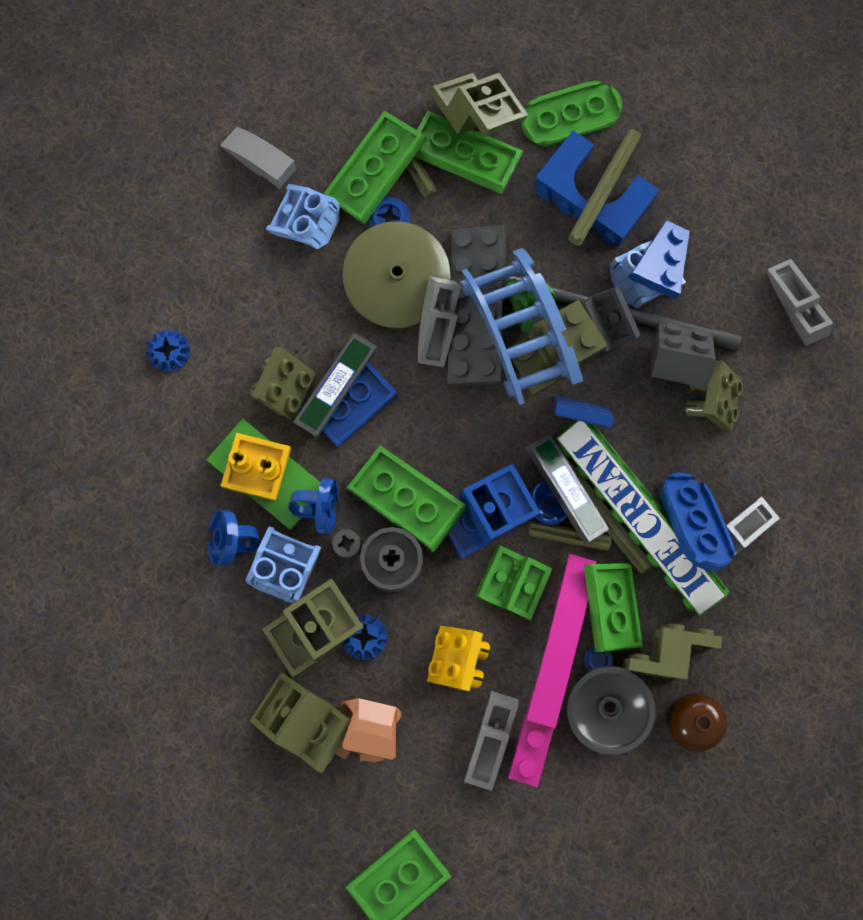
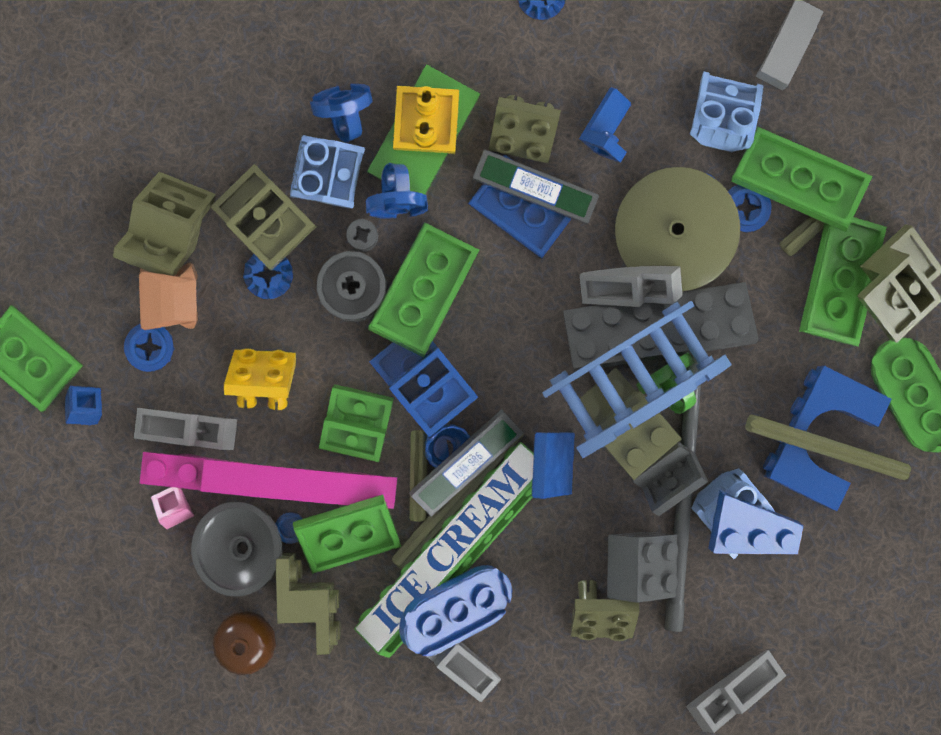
camera: 80 degrees right, 10 degrees up
(299, 324) = (600, 129): none -> blue bracket
(417, 772) = (139, 358): none -> blue gear
(452, 834) = (83, 405): none -> blue slope
(561, 767) = (171, 507): none -> bright pink slope

